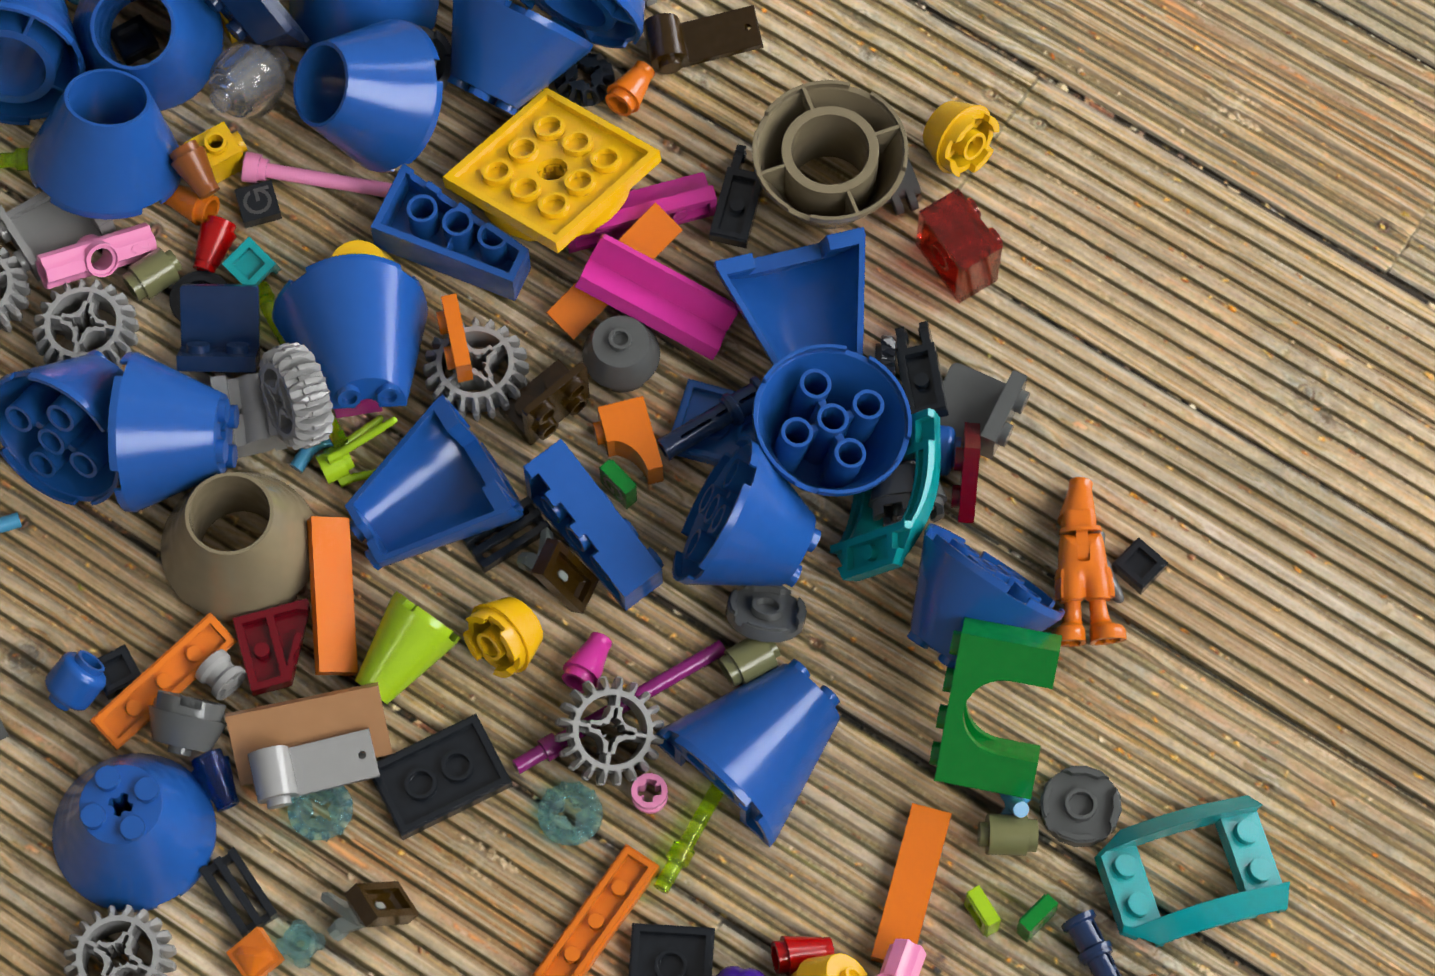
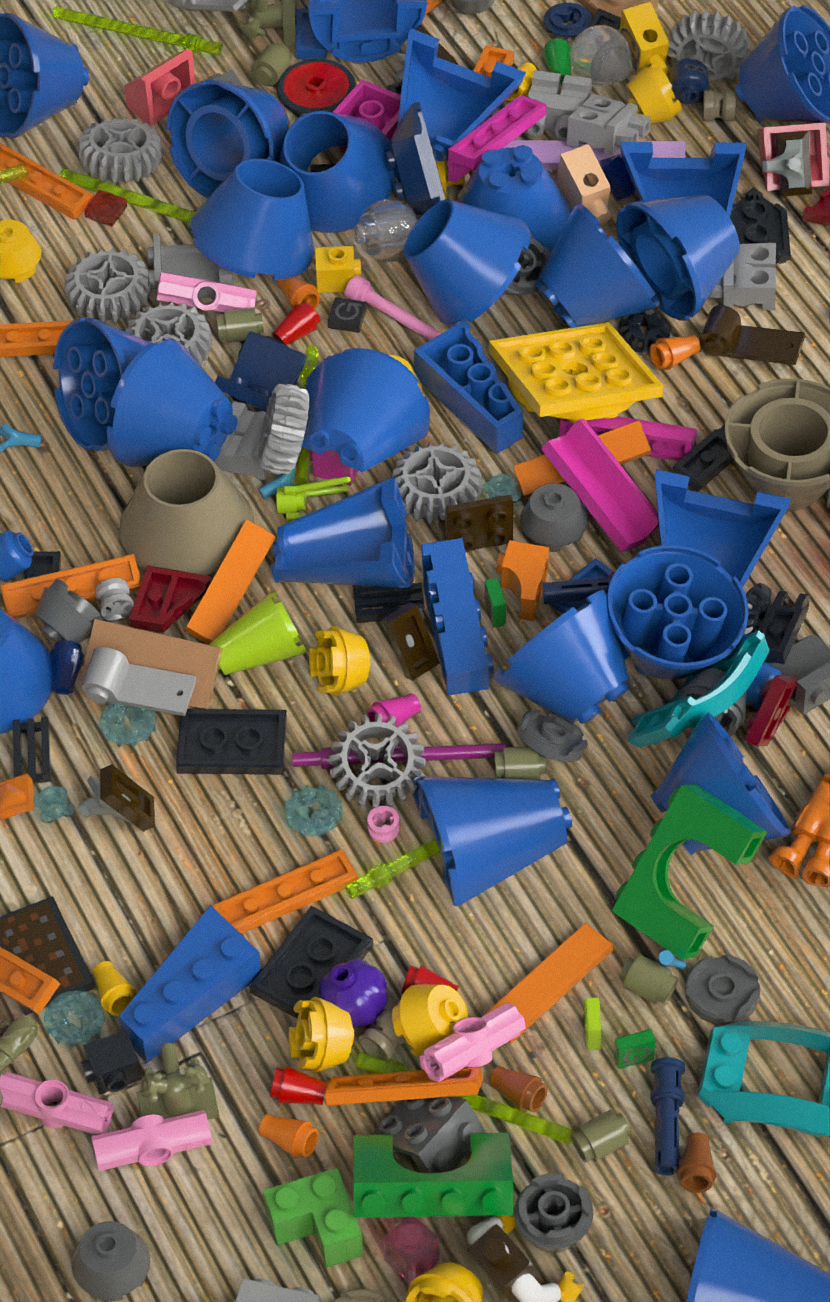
camera: 30 degrees right, 15 degrees down
(195, 169) = (310, 262): dark orange cone -> none
(250, 263) = (312, 341): teal panel -> none
(457, 353) = (431, 440): orange plate -> none
(547, 334) = (500, 486): none -> clear light blue plate

